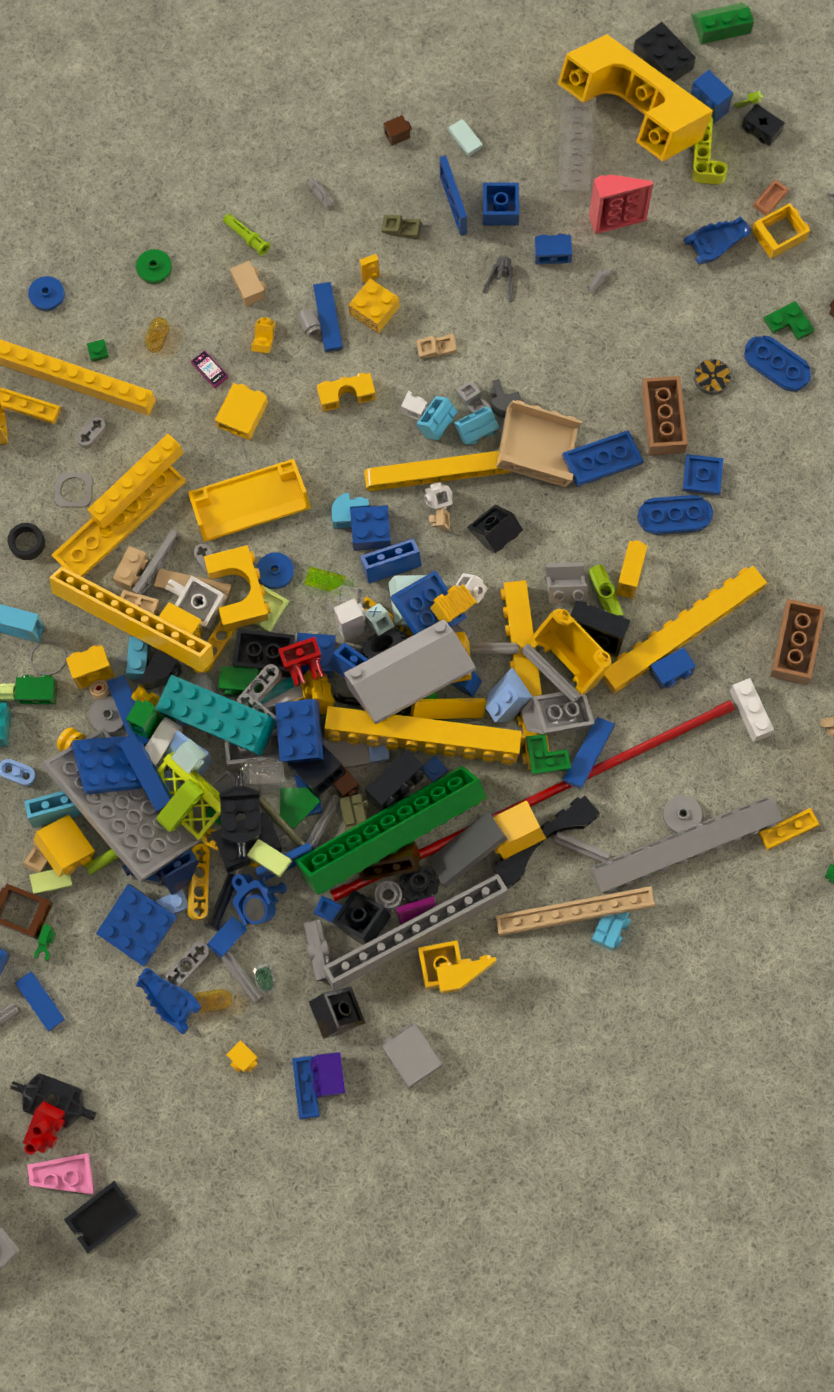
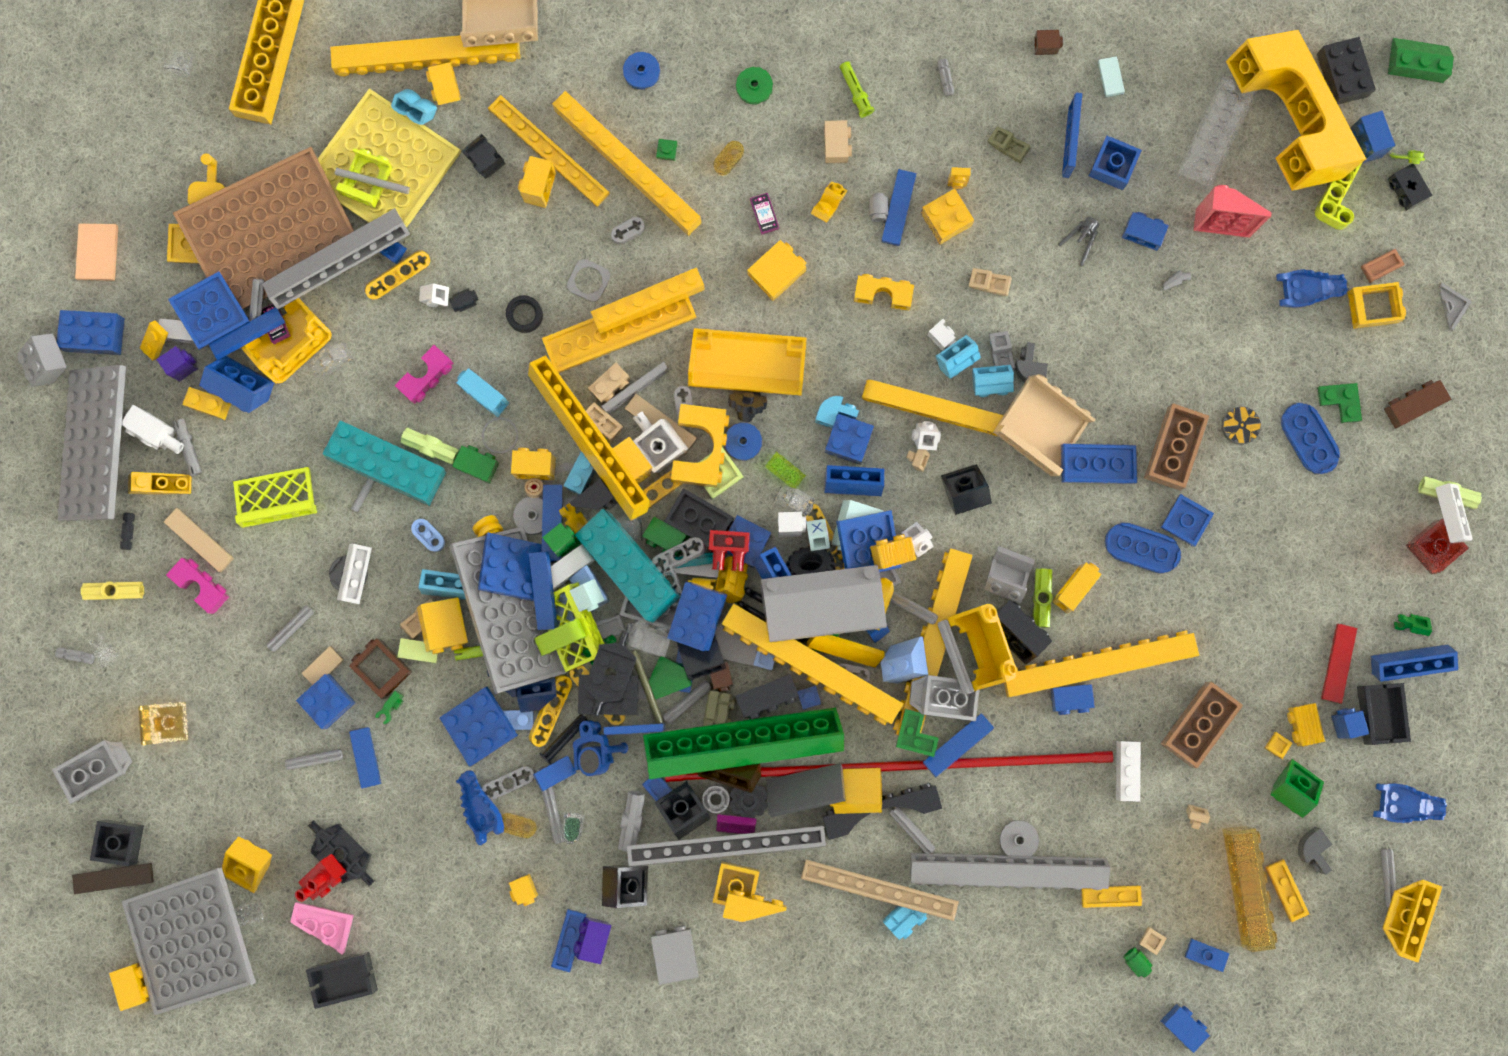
camera: 25 degrees right, 10 degrees up
(265, 535) = (747, 404): none -> black plant
(269, 858) = (620, 724): yellowish green tile -> none

